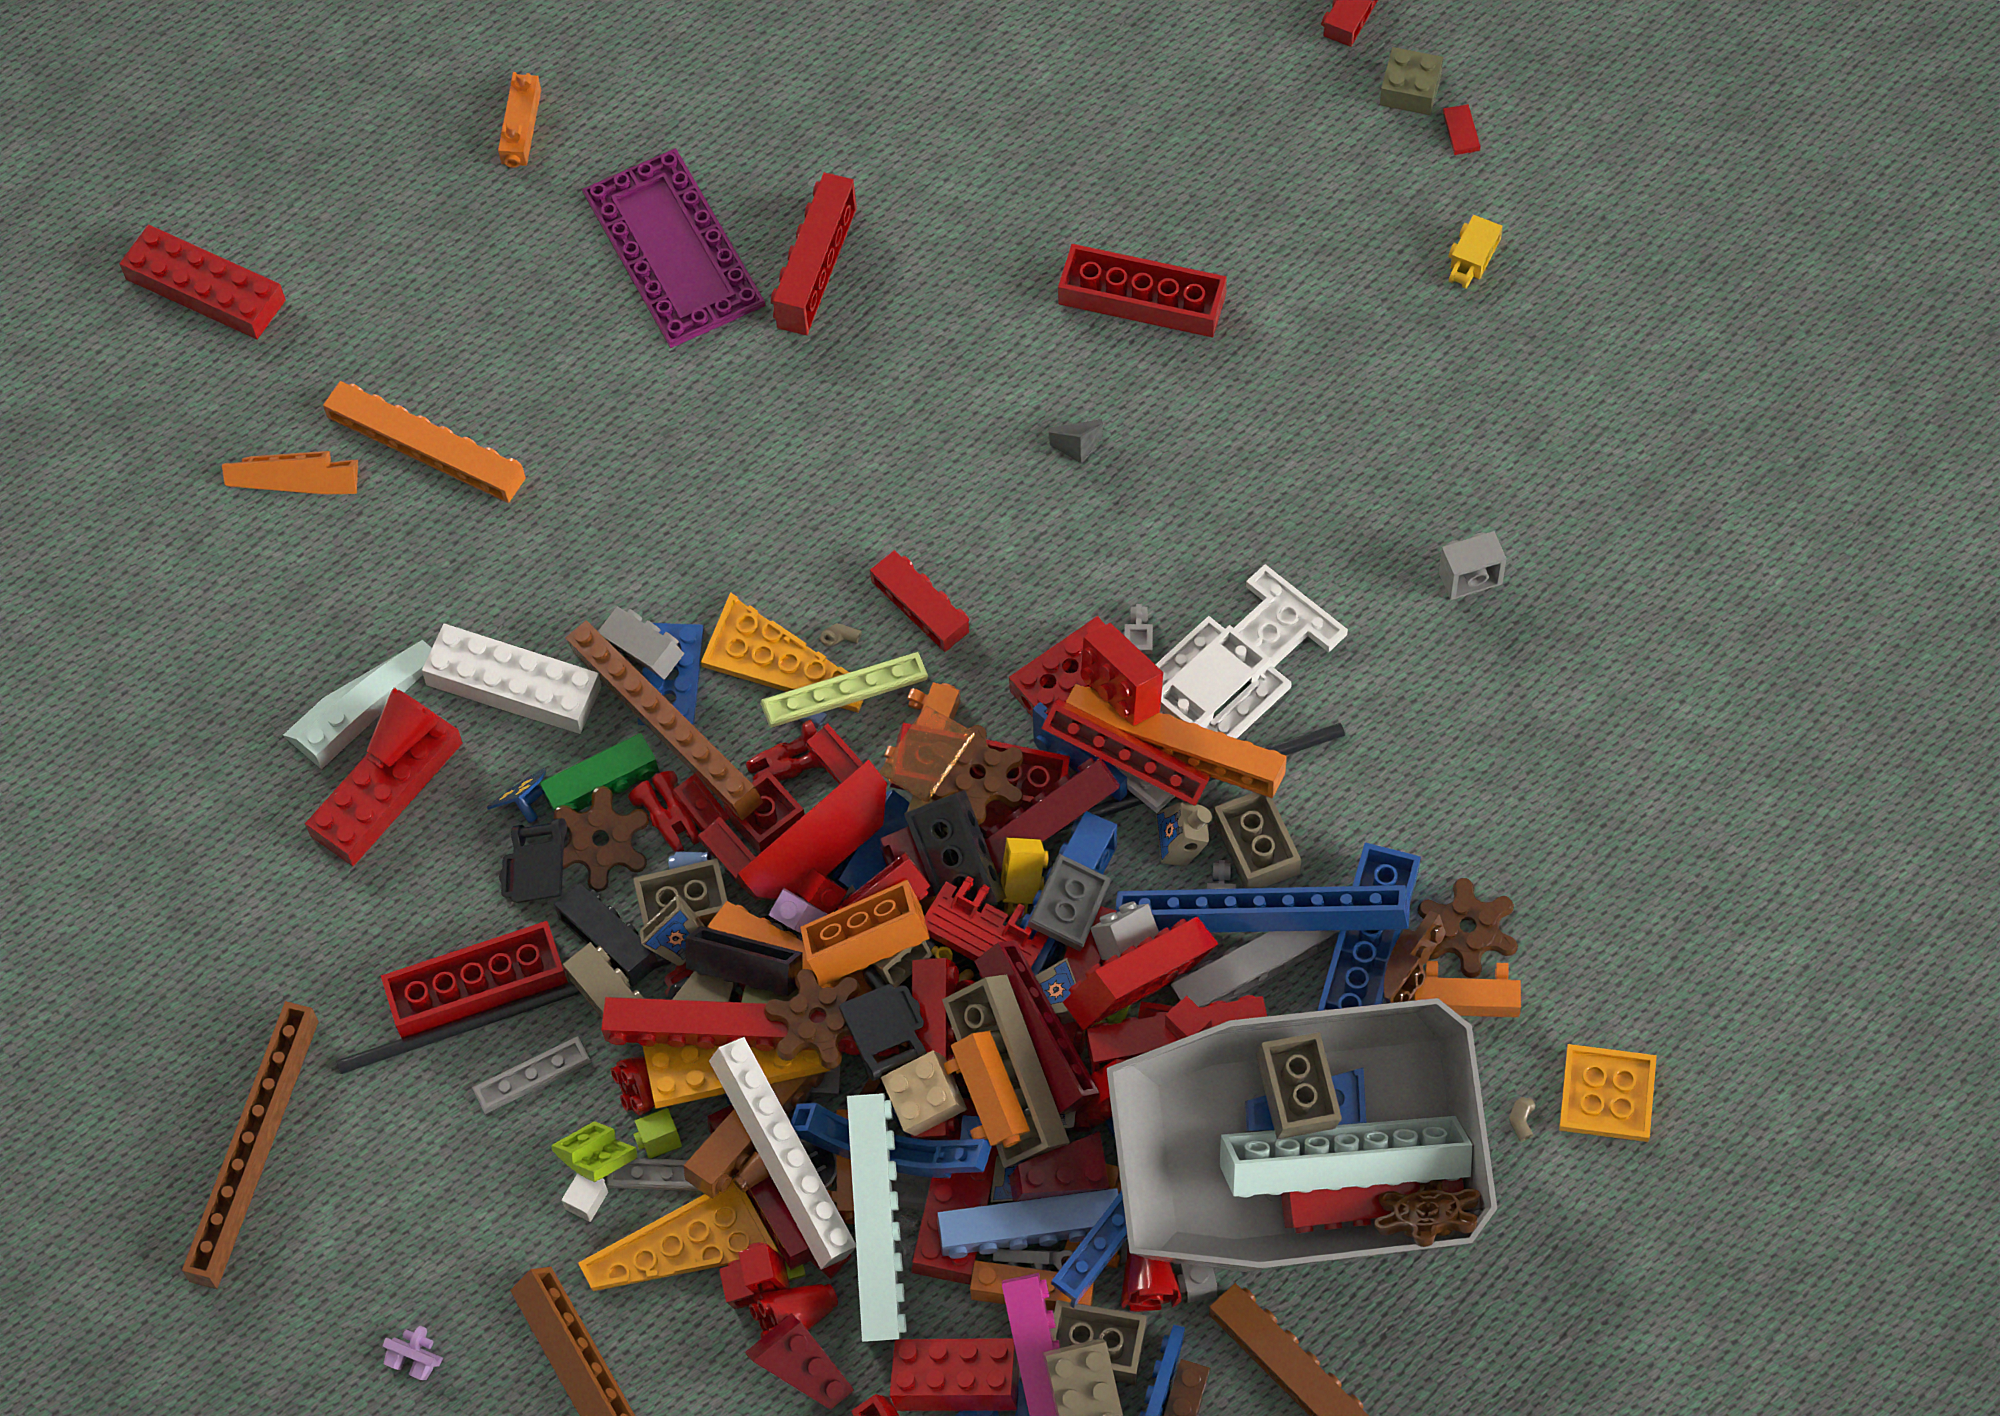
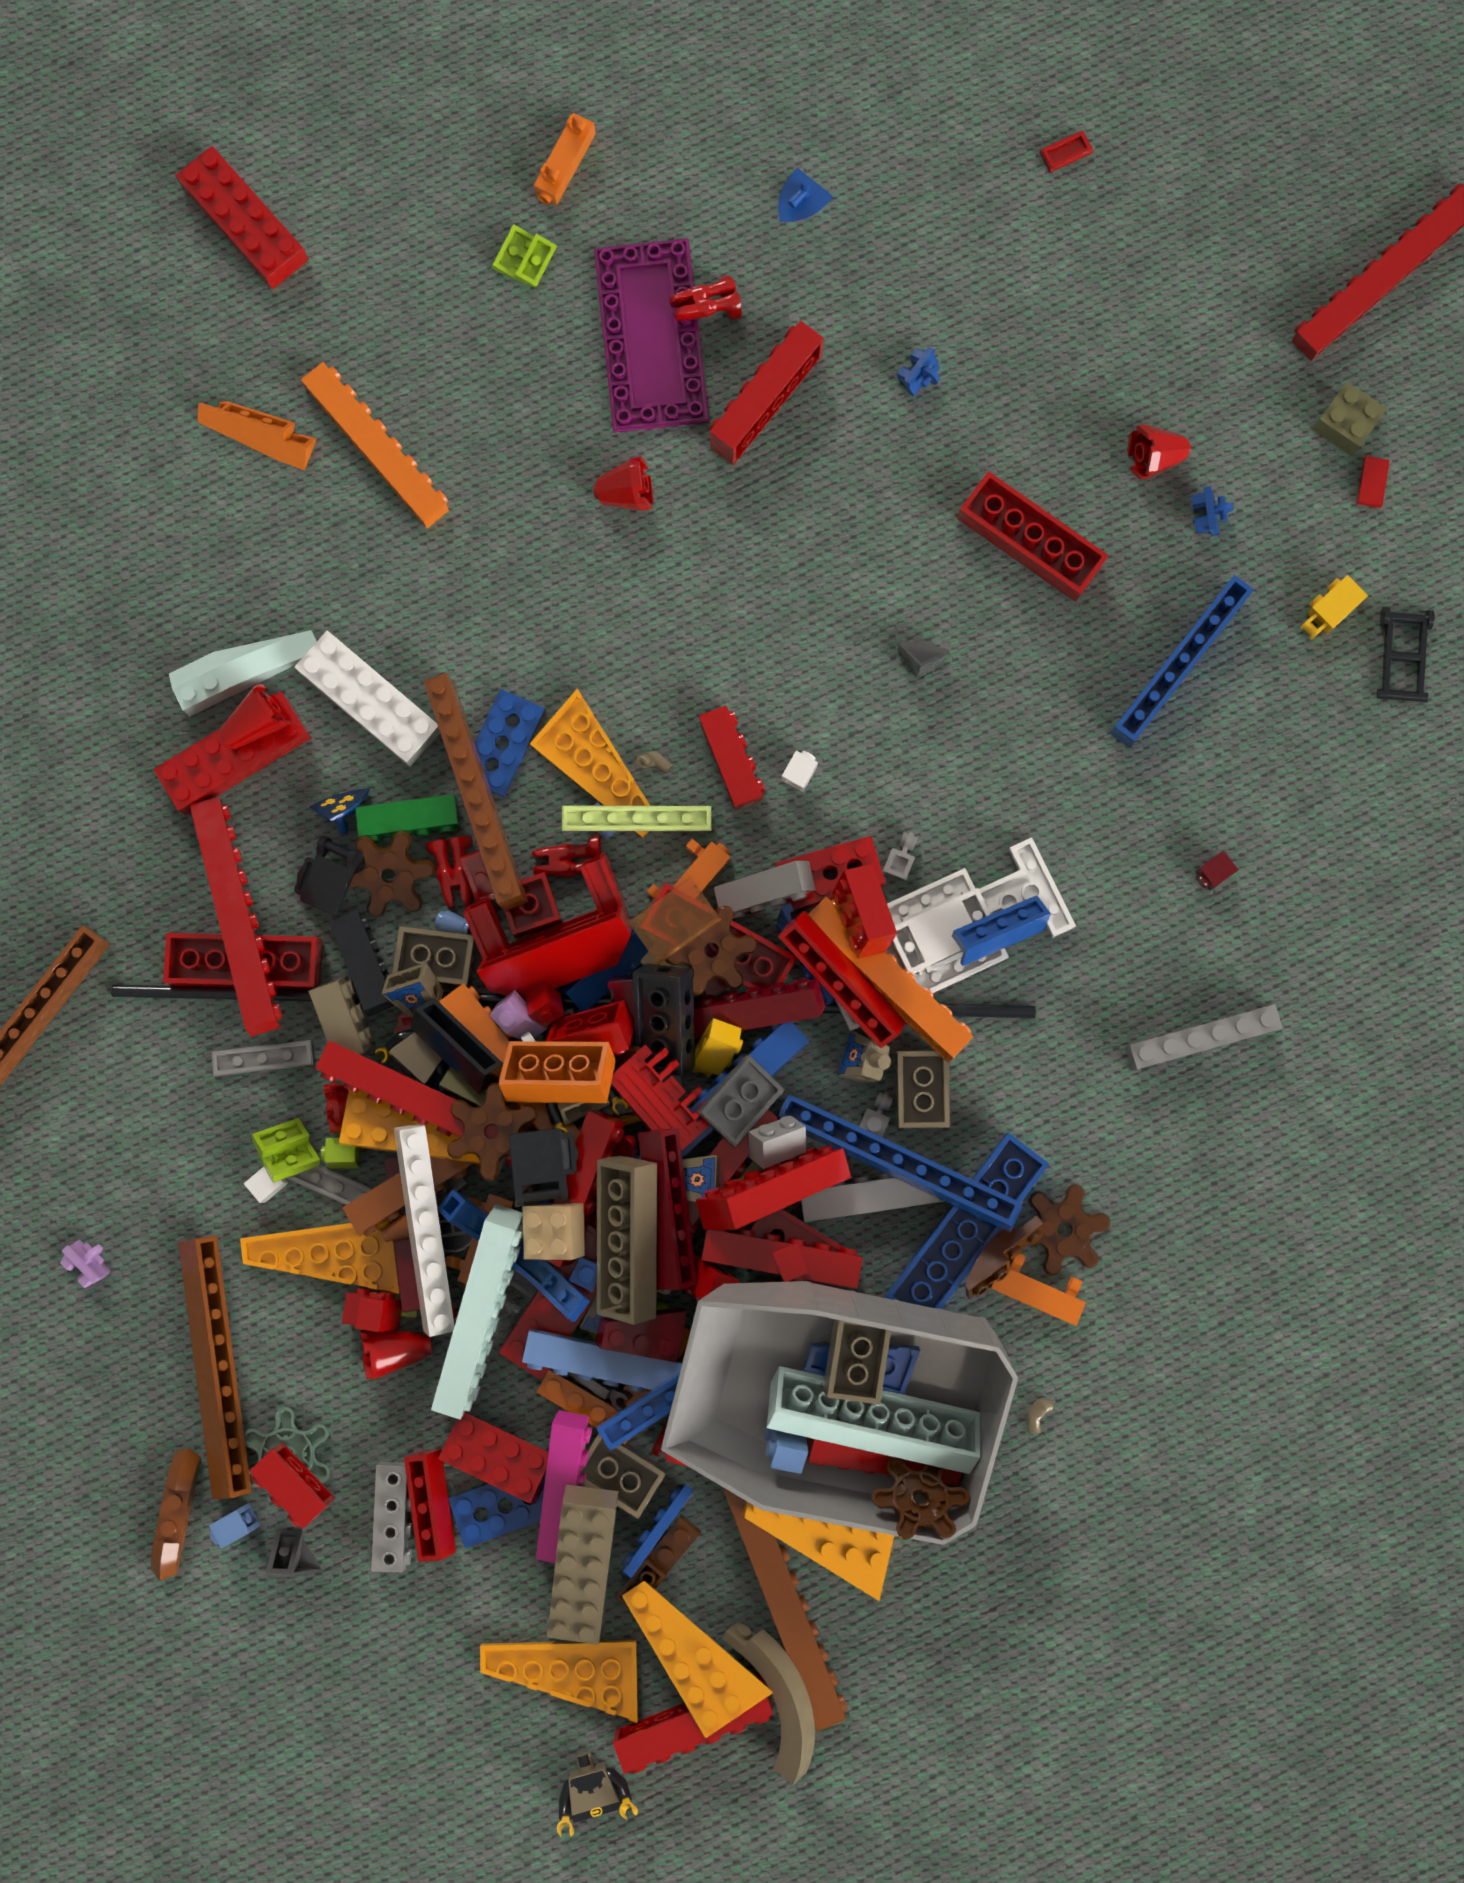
camera: 20 degrees right, 20 degrees up
(452, 929) = (235, 917): none -> red brick
(523, 224) = (524, 256): none -> lime slope
(642, 641) = (485, 709): light grey brick -> none
(703, 388) = (624, 484): none -> red cone
(712, 197) = (696, 303): none -> red piece
(775, 75) = (801, 197): none -> blue shield
(800, 1361) = (377, 1404): dark red wedge -> none
(966, 184) = (922, 373): none -> blue hips
(989, 1089) = (604, 1257): orange brick -> none
(996, 587) = (800, 770): none -> white brick
(1013, 695) = (766, 888): none -> light grey brick
(1233, 170) = (1157, 448): none -> red cone
(1262, 1217) = (785, 1450): none -> medium blue brick
(1272, 654) = (1001, 929): none -> blue panel
(1314, 219) = (1207, 501): none -> blue hips
(1343, 350) = (1181, 661): none -> blue brick
(1363, 1322) = (846, 1551): none -> light orange wing
(1467, 524) = (1215, 871): none -> dark red brick
(1472, 565) = (1205, 910): light grey brick -> none
(1526, 686) = (1203, 1037): none -> light grey brick
(1571, 232) = (1426, 623): none -> black piece
(1608, 1093) = (1116, 1422): light orange plate -> none

